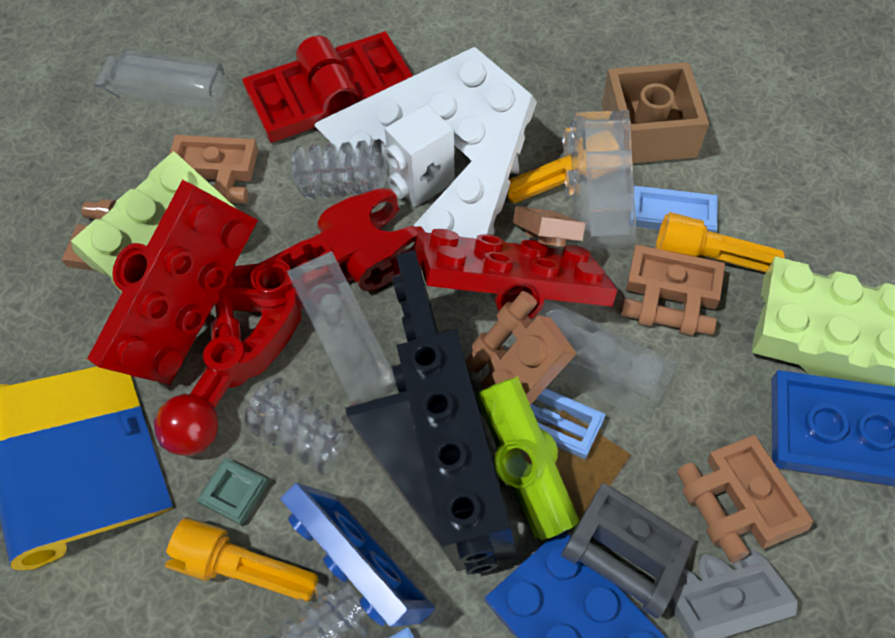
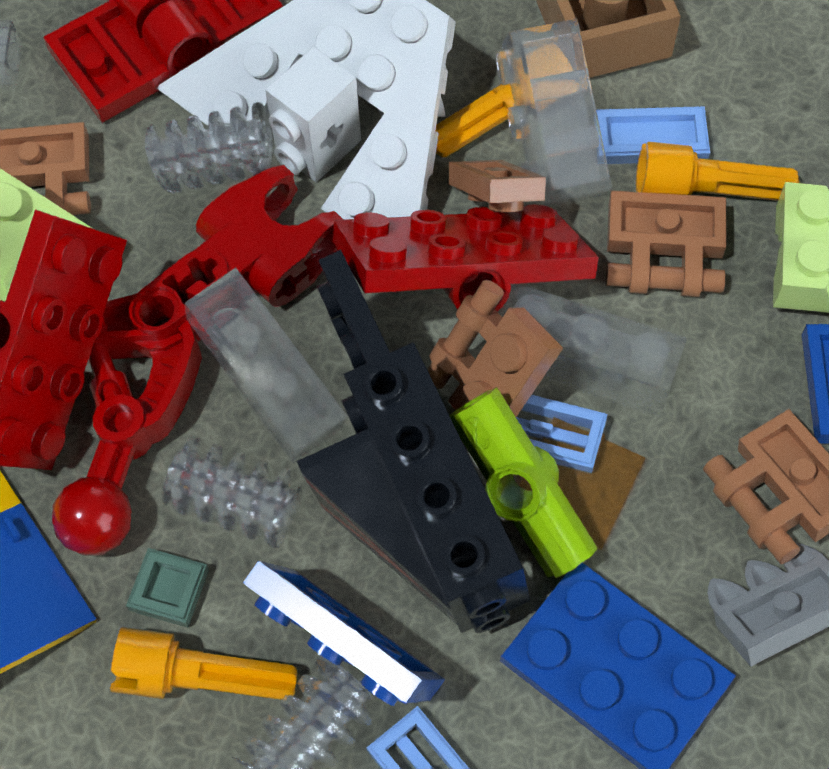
camera: 10 degrees left, 5 degrees up
(636, 537) = (667, 554): flat silver plate -> none

